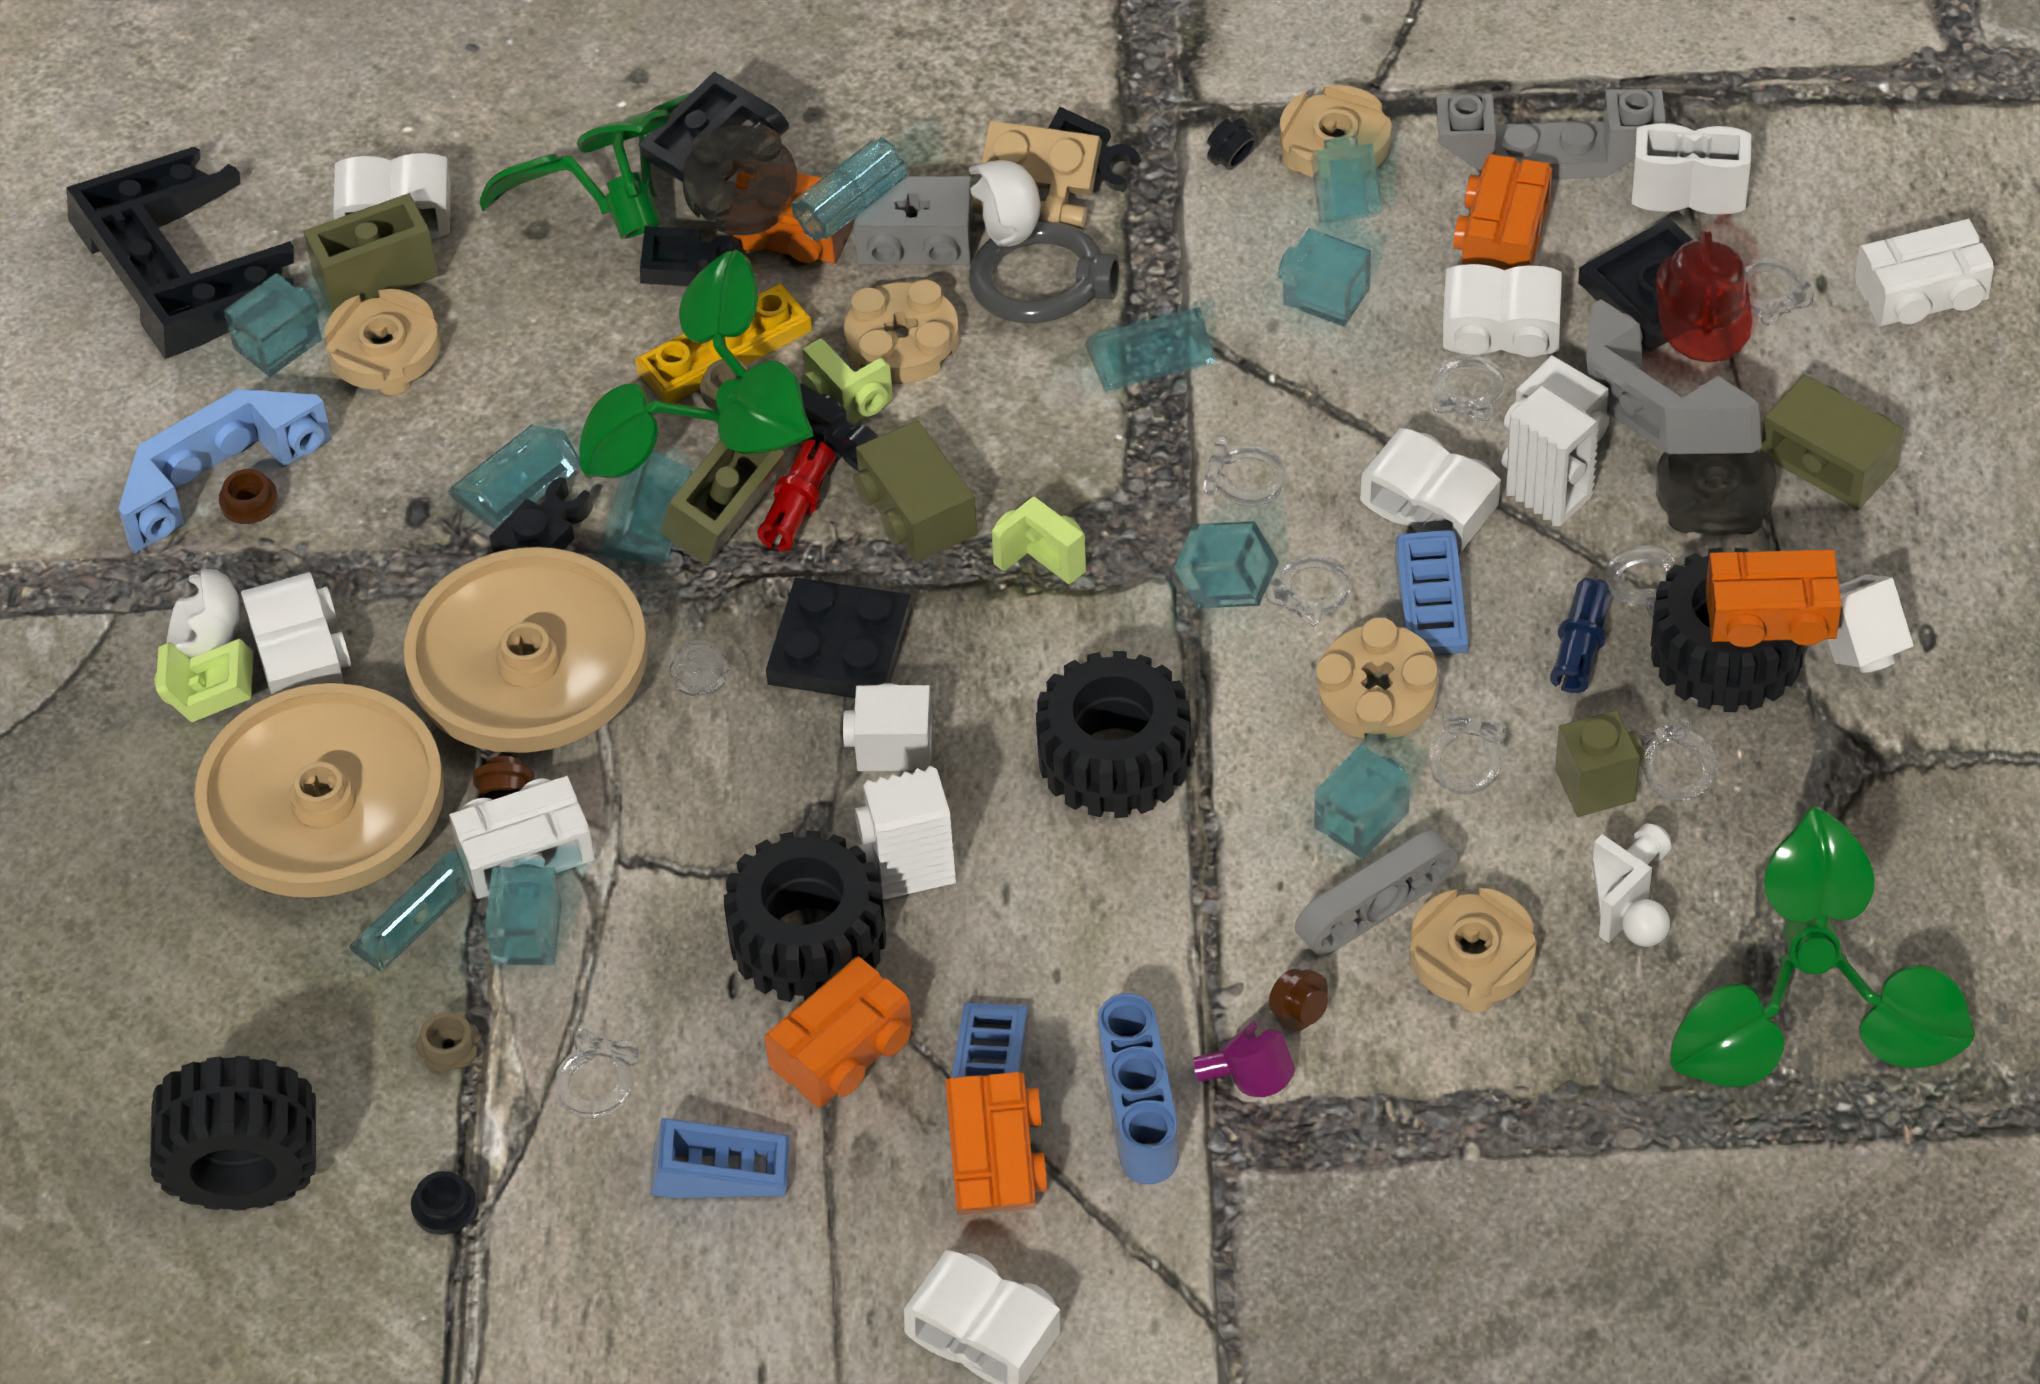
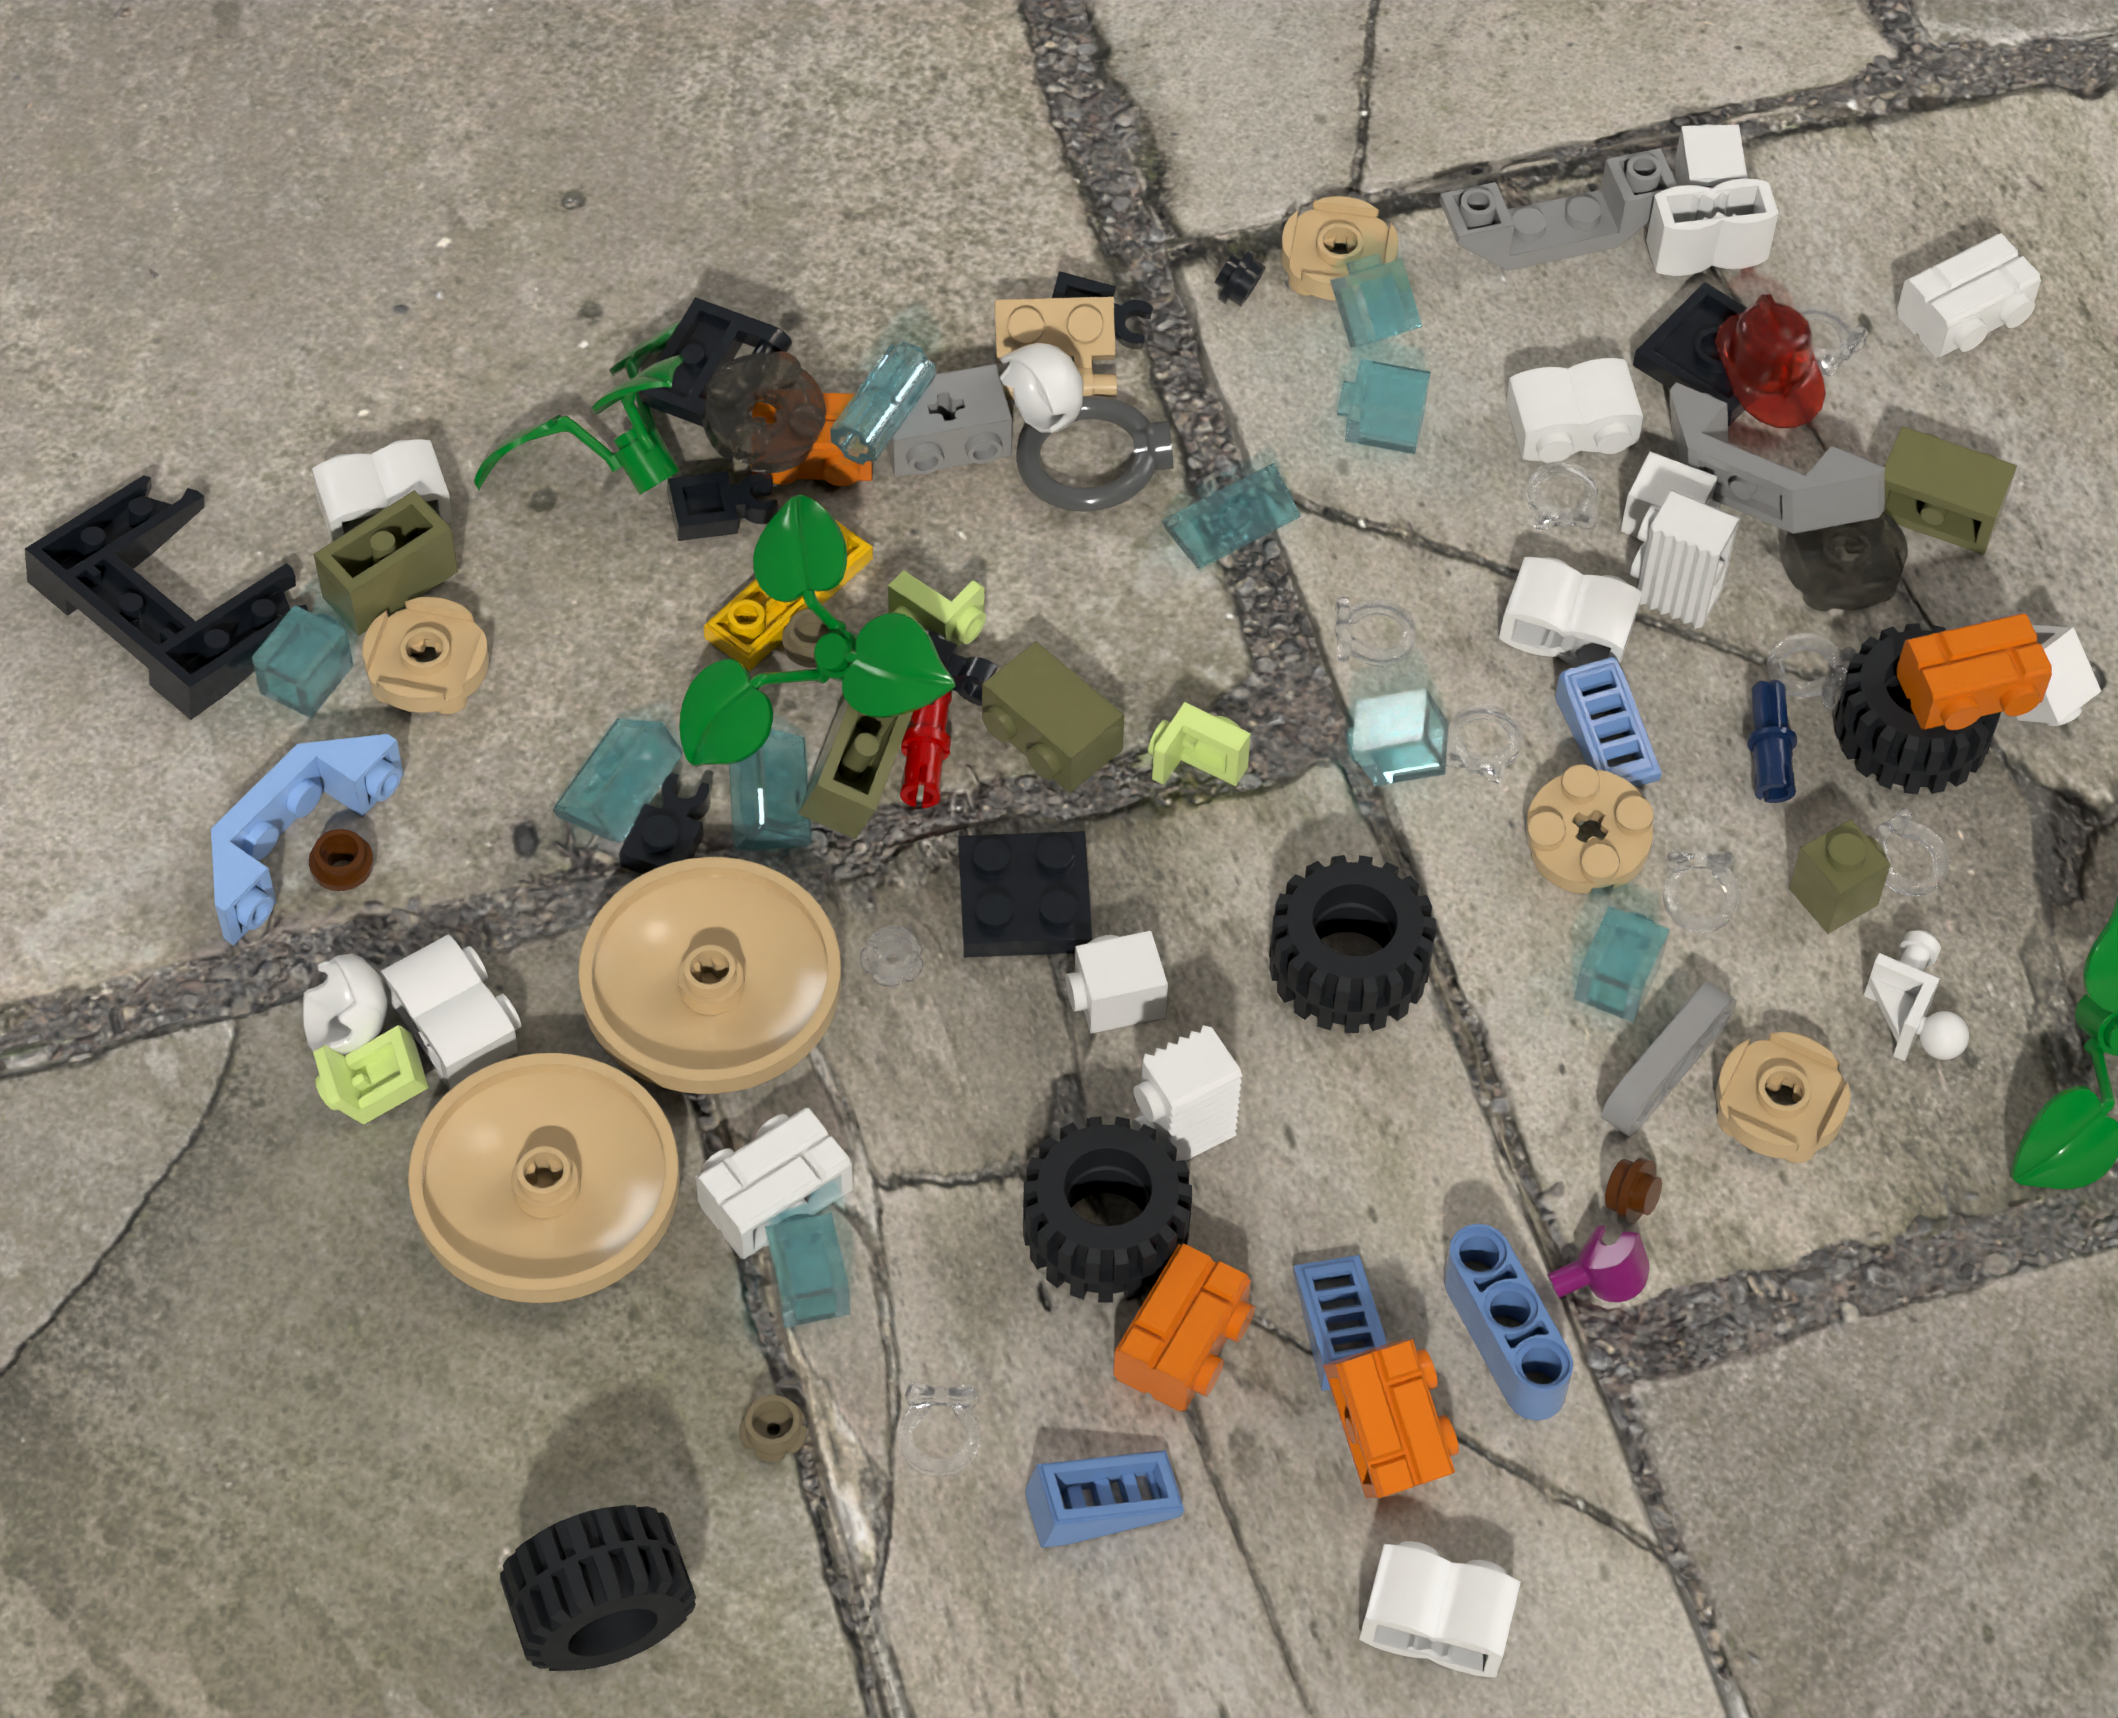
camera: 20 degrees left, 5 degrees up
(411, 913) = (679, 1290): clear light blue slope -> none
(443, 1203) = (831, 1608): black plate -> none
(501, 777) = (731, 1123): reddish brown plate -> none
(897, 305) = (964, 514): tan plate -> none
(1505, 213) = (1542, 308): orange brick -> none
(1712, 102) = (1709, 155): none -> white brick

